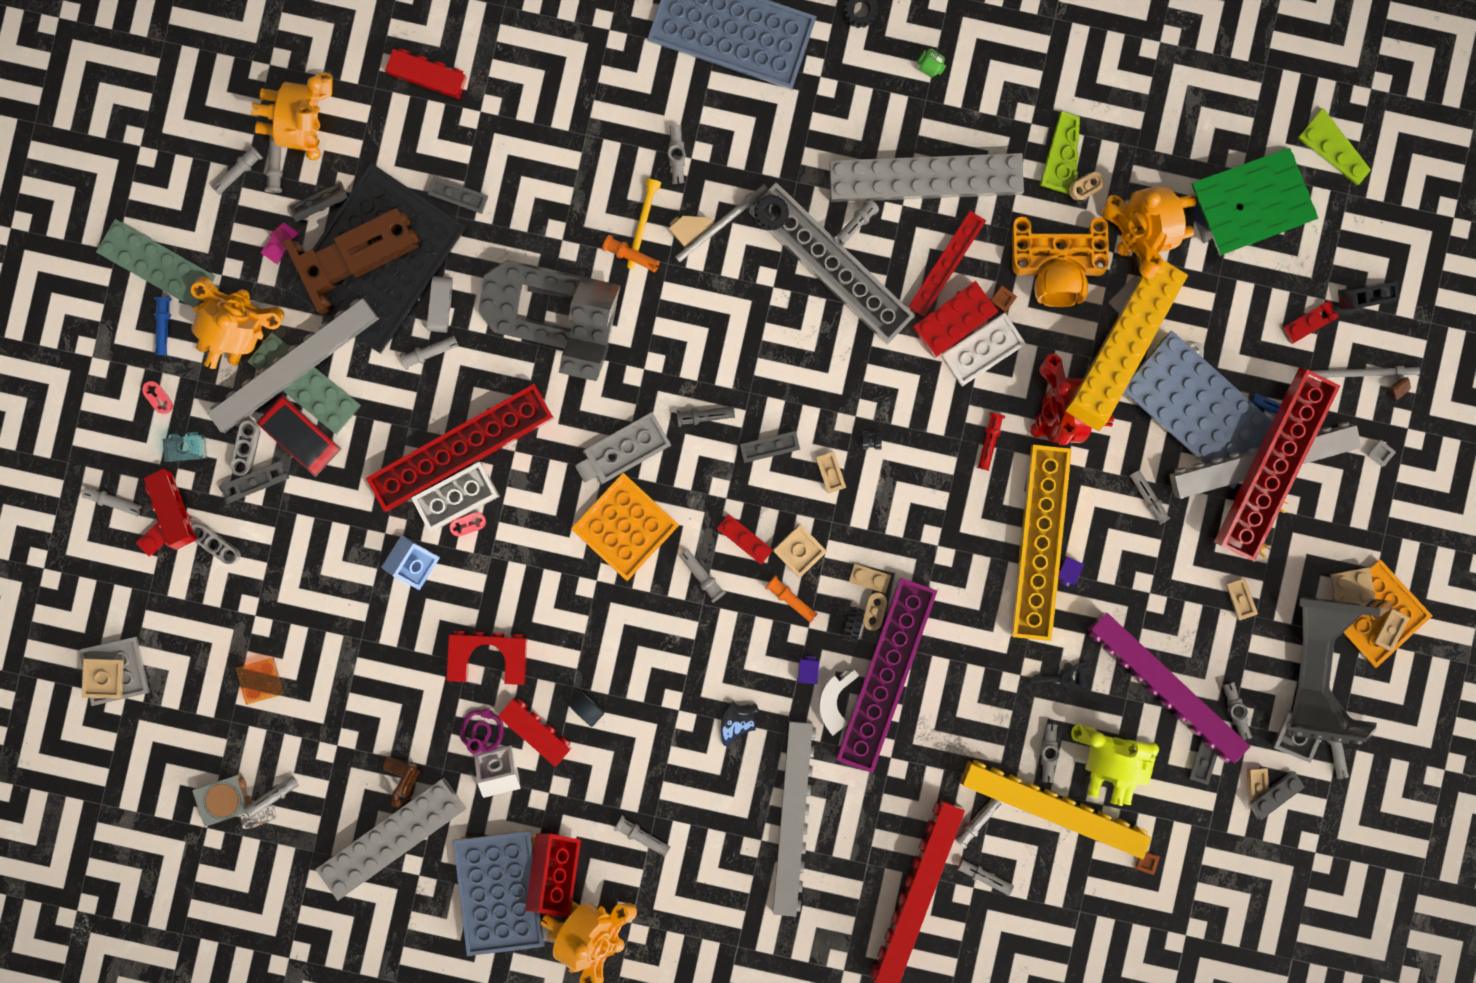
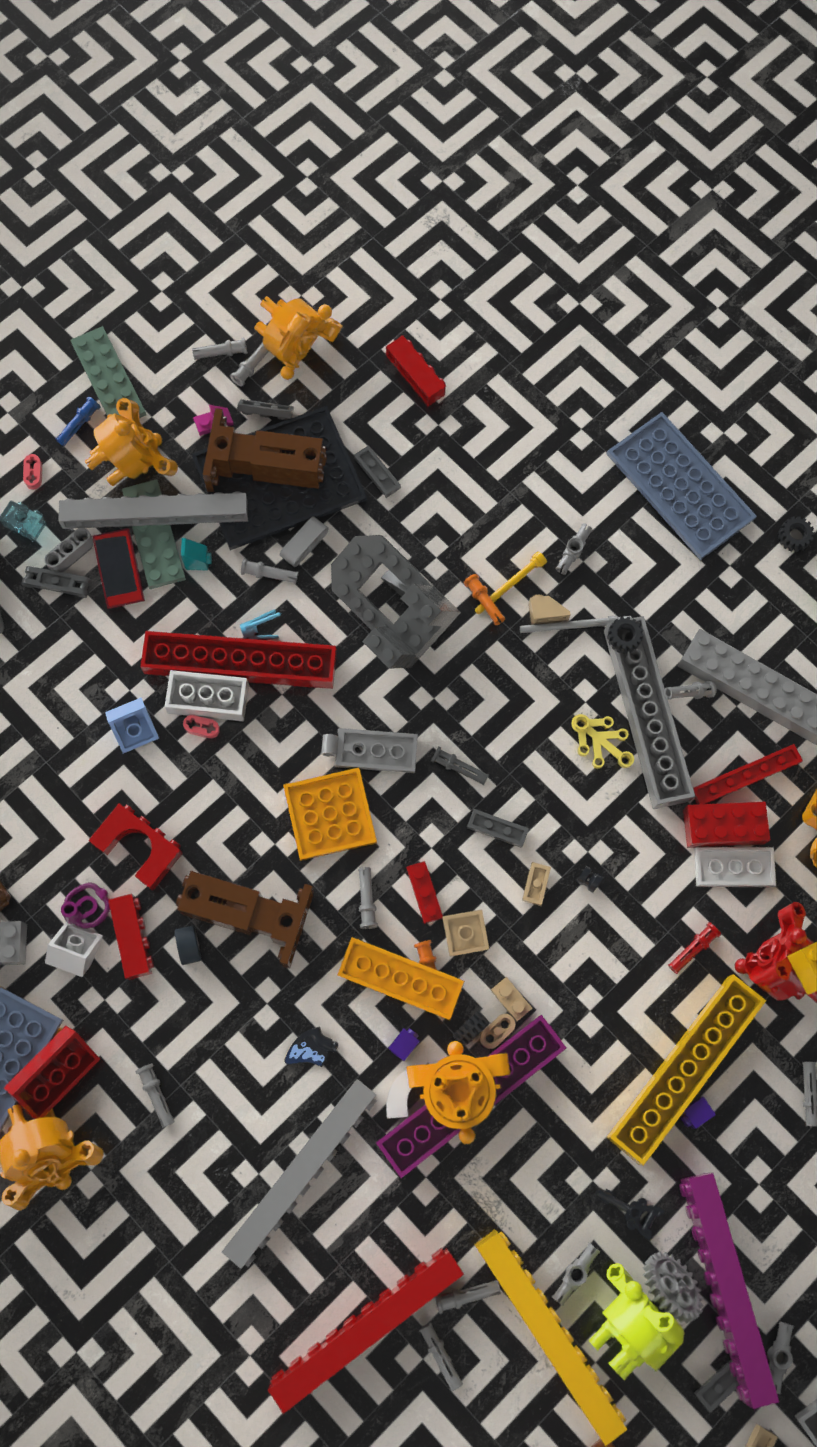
camera: 30 degrees right, 15 degrees down
(357, 381) = (195, 555): none -> teal slope
(448, 414) = (249, 628): none -> medium azure plant
(613, 652) = (246, 910): none -> reddish brown brick
(772, 621) = (401, 978): none -> light orange plate
(806, 313) = (600, 739): none -> light yellow plant
(874, 678) = (460, 1088): none -> light orange piece
(1003, 299) = (779, 835): dark orange plate -> none
(1127, 715) = (673, 1287): none -> light grey gear

